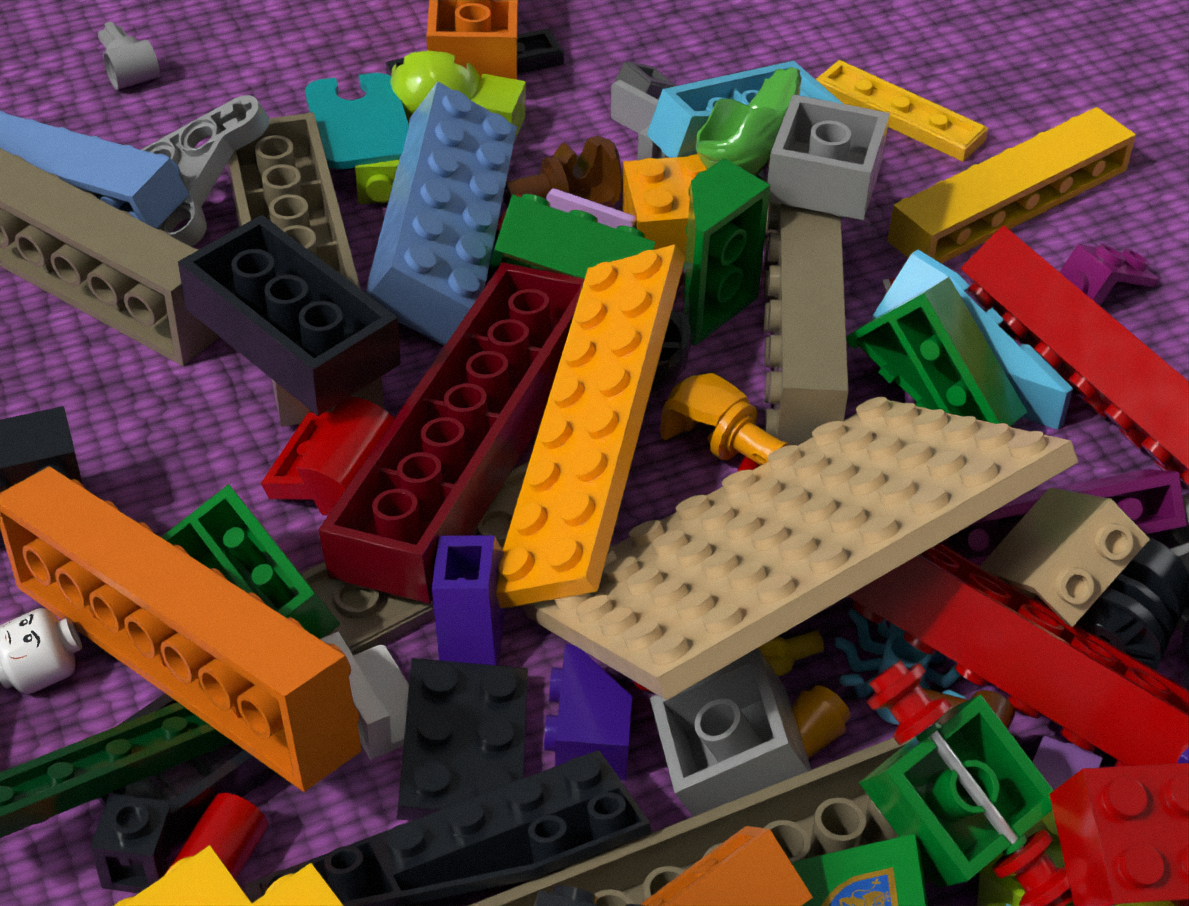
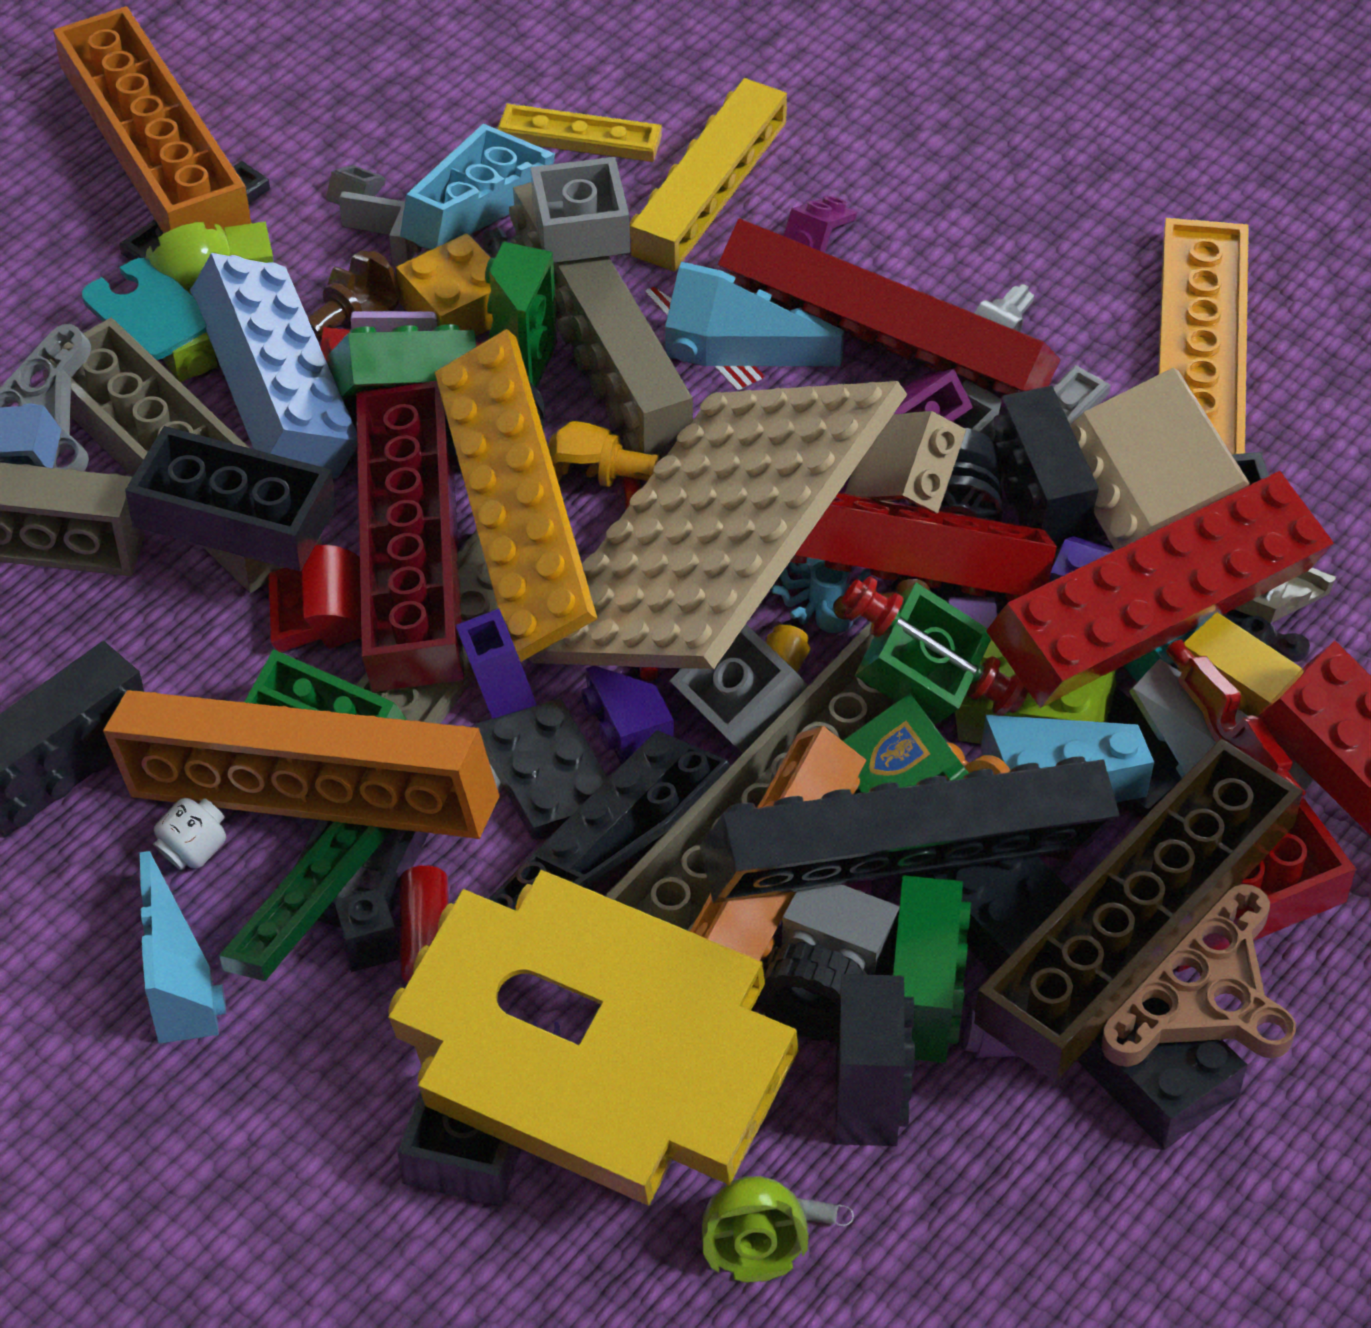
camera: 25 degrees left, 5 degrees up
(748, 131) = (496, 207): bright green hair -> none
(940, 356) = (738, 344): green wedge -> none

